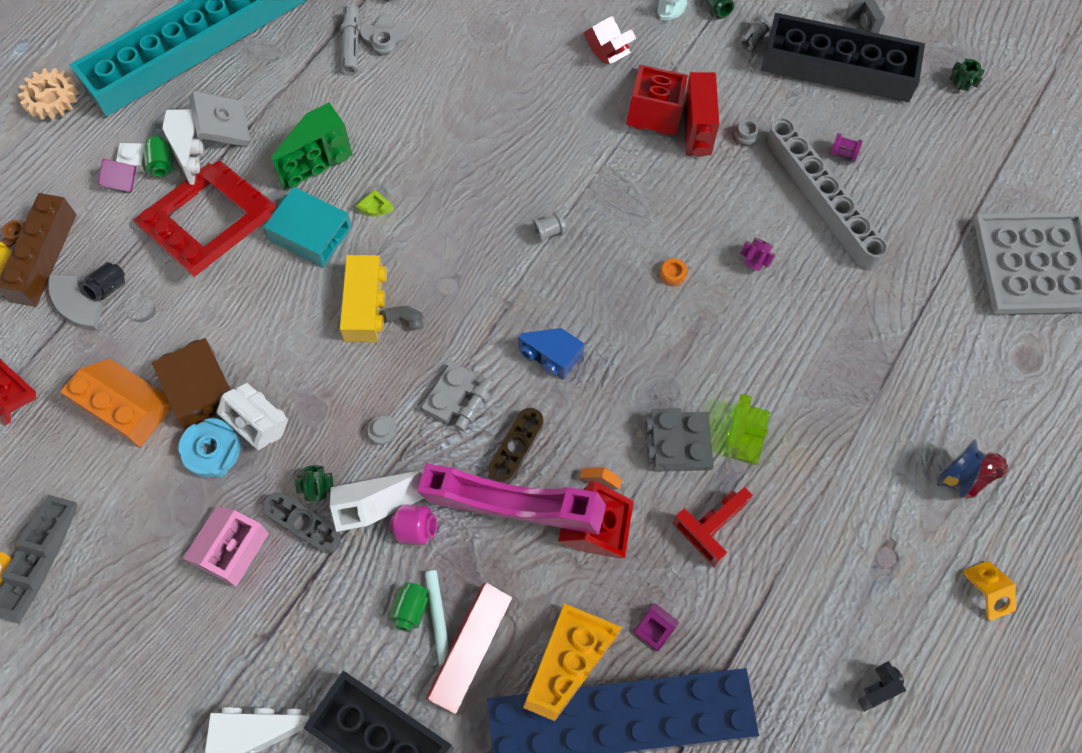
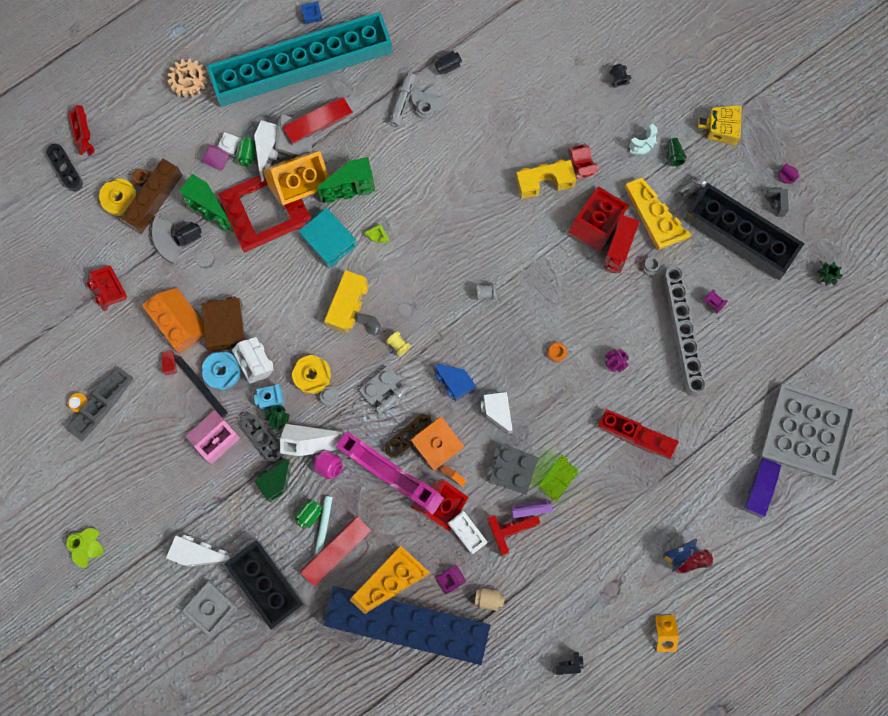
camera: 25 degrees right, 10 degrees up
(117, 231) = (200, 198): none -> green slope
(126, 465) = (168, 363): none -> red piece
(185, 480) = (201, 386): none -> black bar
(236, 160) = (296, 177): none -> light orange slope
(243, 89) = (317, 120): none -> red slope
(303, 458) = (275, 399): none -> medium azure brick
(342, 576) = (274, 482): none -> dark green slope
(345, 425) = (302, 369): none -> yellow plate
(455, 328) = (398, 343): none -> light yellow bush
(560, 440) = (437, 443): none -> orange plate
(586, 62) = (560, 173): none -> yellow arch
(628, 369) = (497, 410): none -> white slope
(653, 549) = (467, 532): none -> white plate
(725, 634) = (489, 599): none -> tan brick
(729, 483) = (531, 508): none -> medium lavender tile
(735, 83) = (658, 221): none -> yellow wing
(828, 339) = (638, 435): none -> red slope
(1020, 351) = (762, 488): none -> dark purple slope

